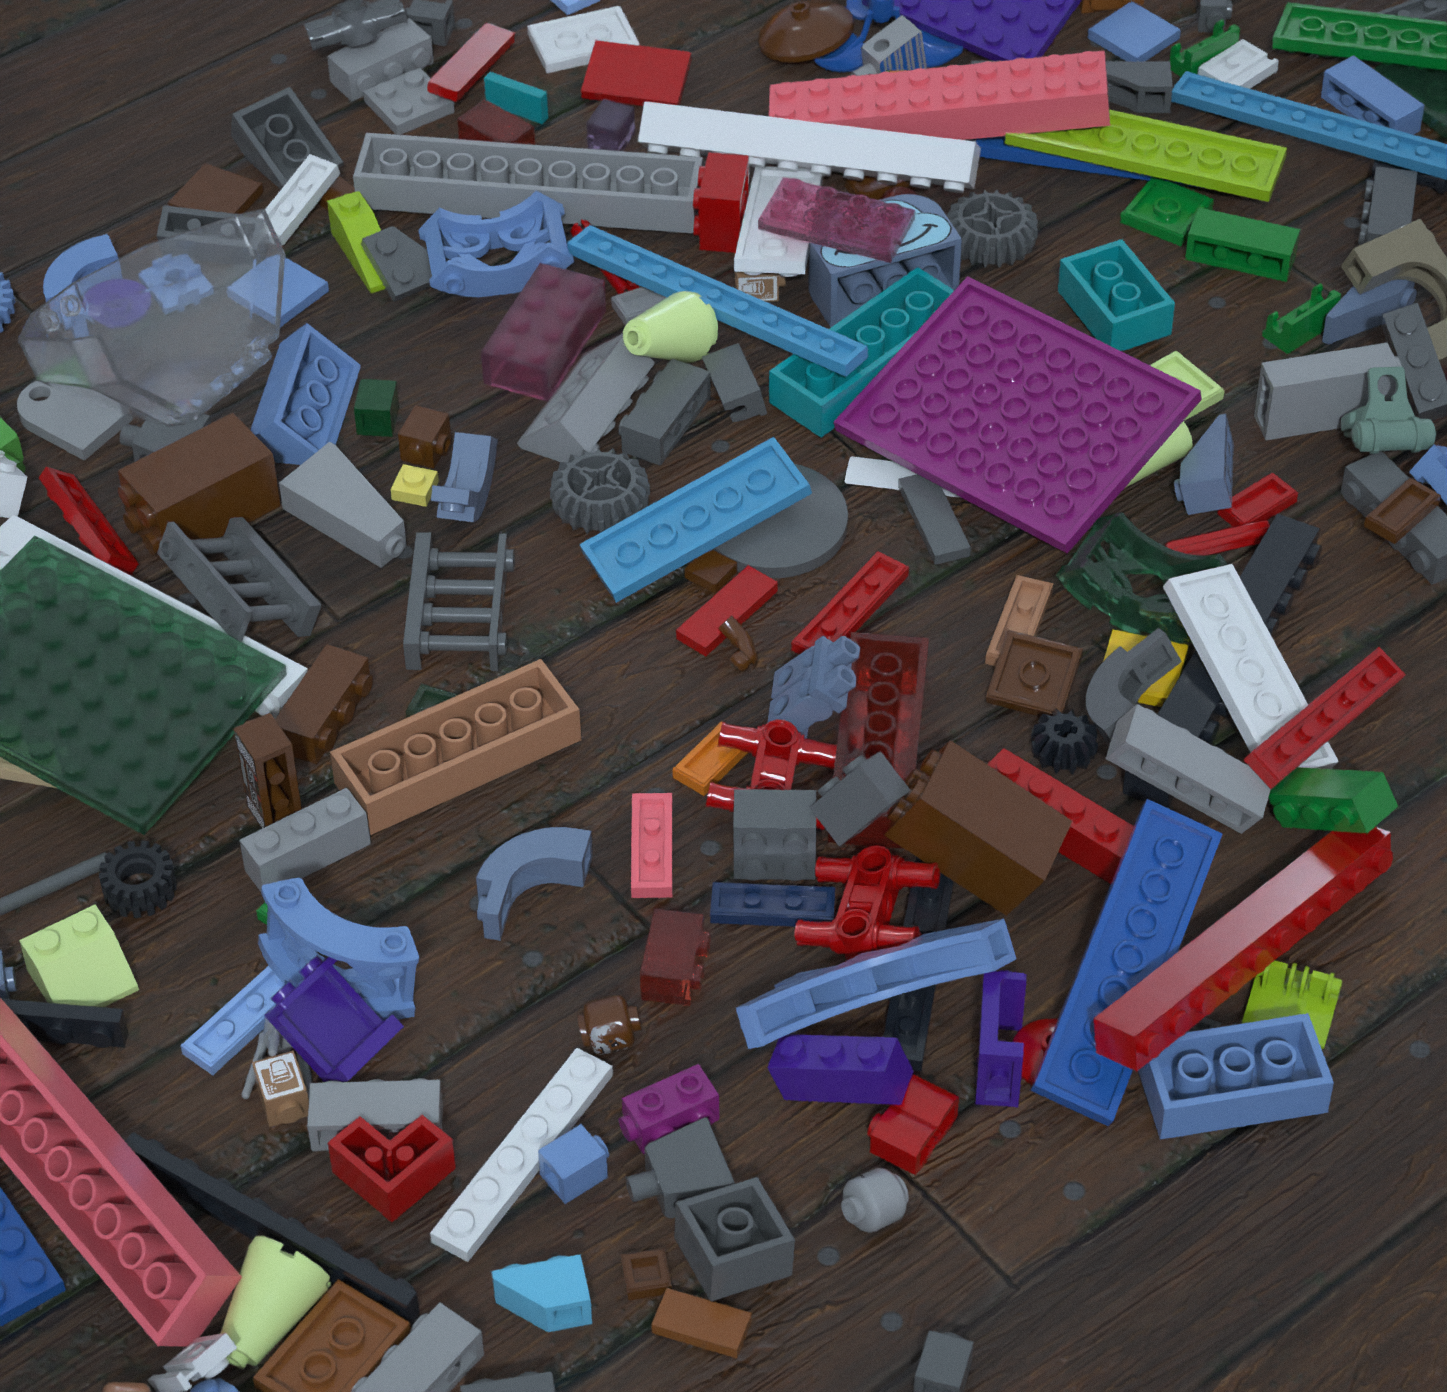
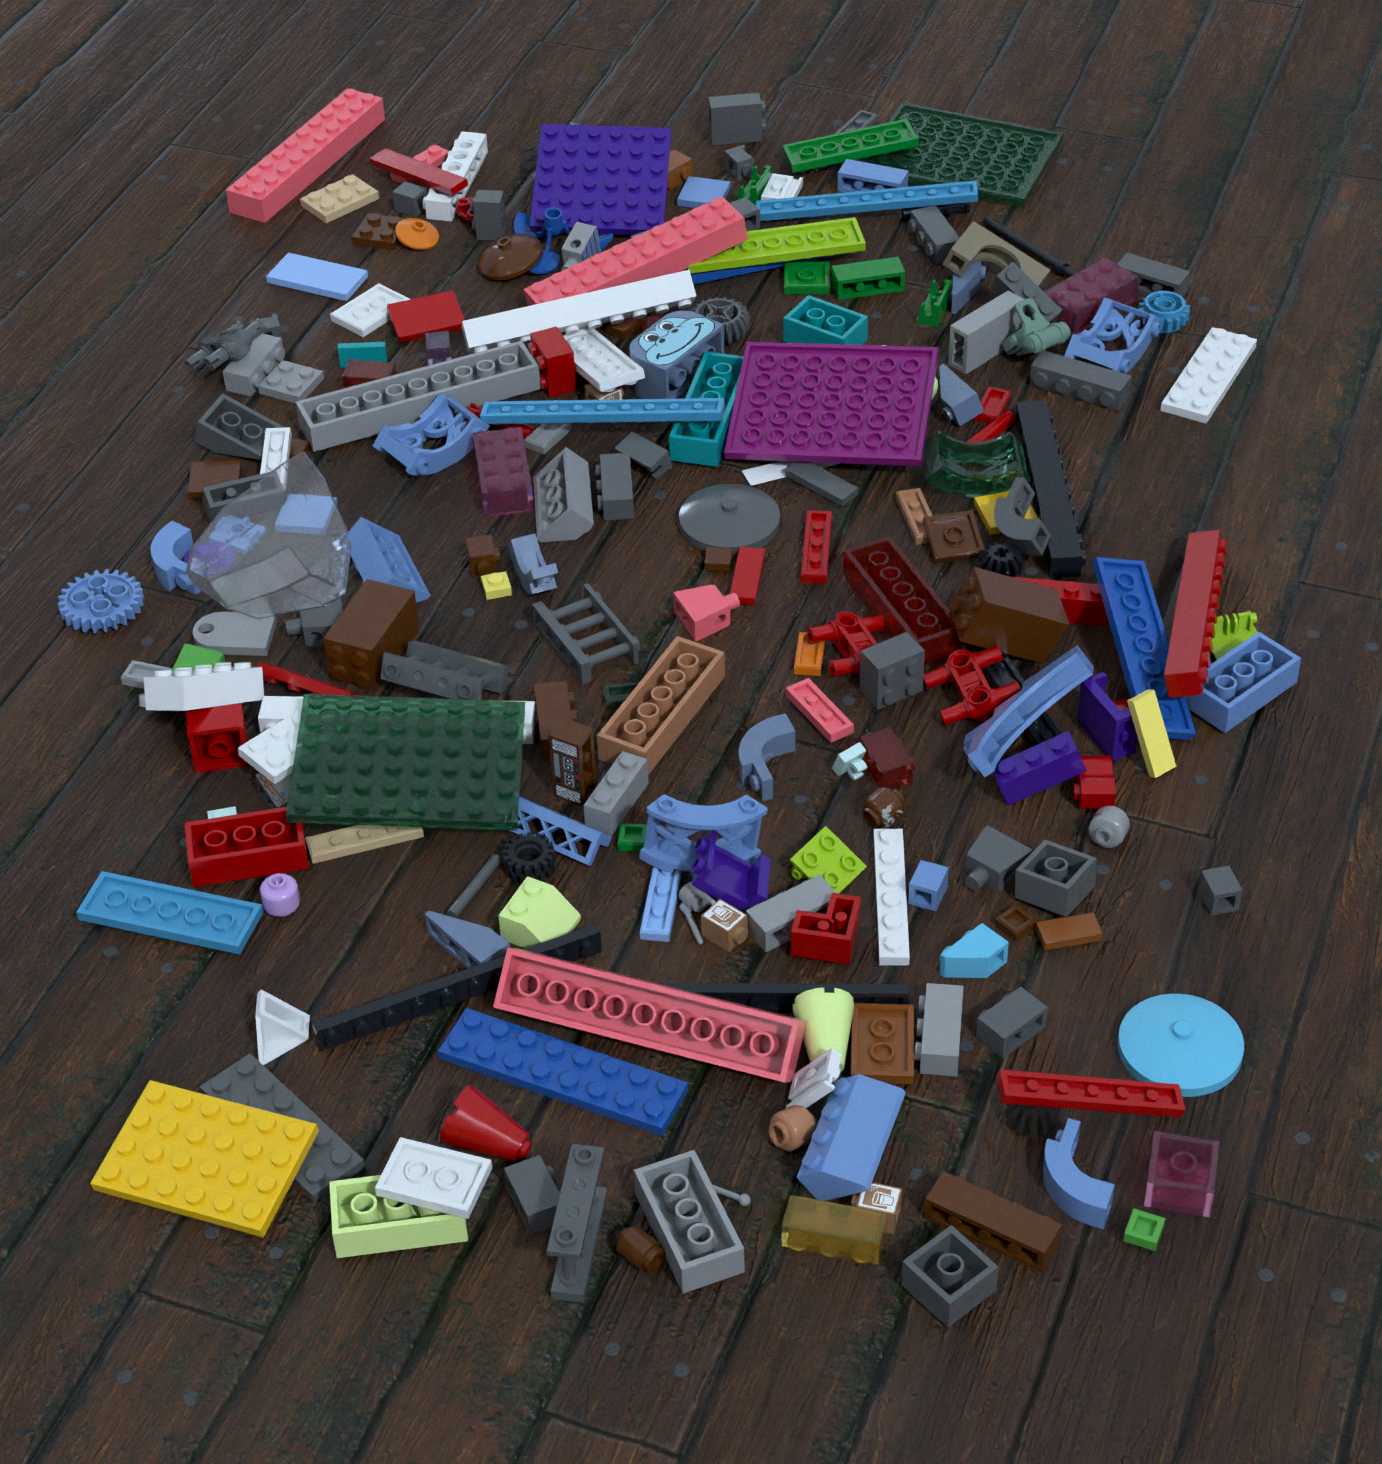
camera: 30 degrees left, 5 degrees down
(219, 858) = (569, 825): none -> medium blue fence
(344, 506) = (468, 611): light grey slope -> none
(349, 223) = (340, 466): lime slope -> none
(376, 407) = (438, 551): dark green panel -> none
(398, 262) = (376, 468): dark grey wing -> none
(471, 62) = (315, 345): tile -> none
(477, 1067) = (829, 858): none -> lime hinge
(598, 489) = (616, 542): dark grey gear -> none
(626, 937) = (851, 762): none -> light aqua tile
(627, 636) = (704, 610): none -> coral torso
(668, 1106) = (959, 832): magenta brick -> none
(673, 329) = (592, 434): yellowish green cone -> none
(695, 519) = (693, 531): dark azure plate -> none
(742, 642) = (779, 592): reddish brown arm -> none
(770, 904) = (912, 711): dark blue tile -> none
(814, 683) = (846, 584): sand blue hips -> none
(836, 219) = (643, 339): clear pink tile -> none
(858, 798) = (940, 622): dark grey brick -> none
(1027, 1094) = (1151, 733): none -> light yellow tile
(1188, 768) = (1087, 539): light grey brick -> none
(1240, 656) = (1077, 484): white plate -> none
(1324, 718) = (1131, 492): red tile -> none
(1332, 800) = (1176, 526): green brick -> none
(1402, 510) = (1082, 374): reddish brown tile -> none

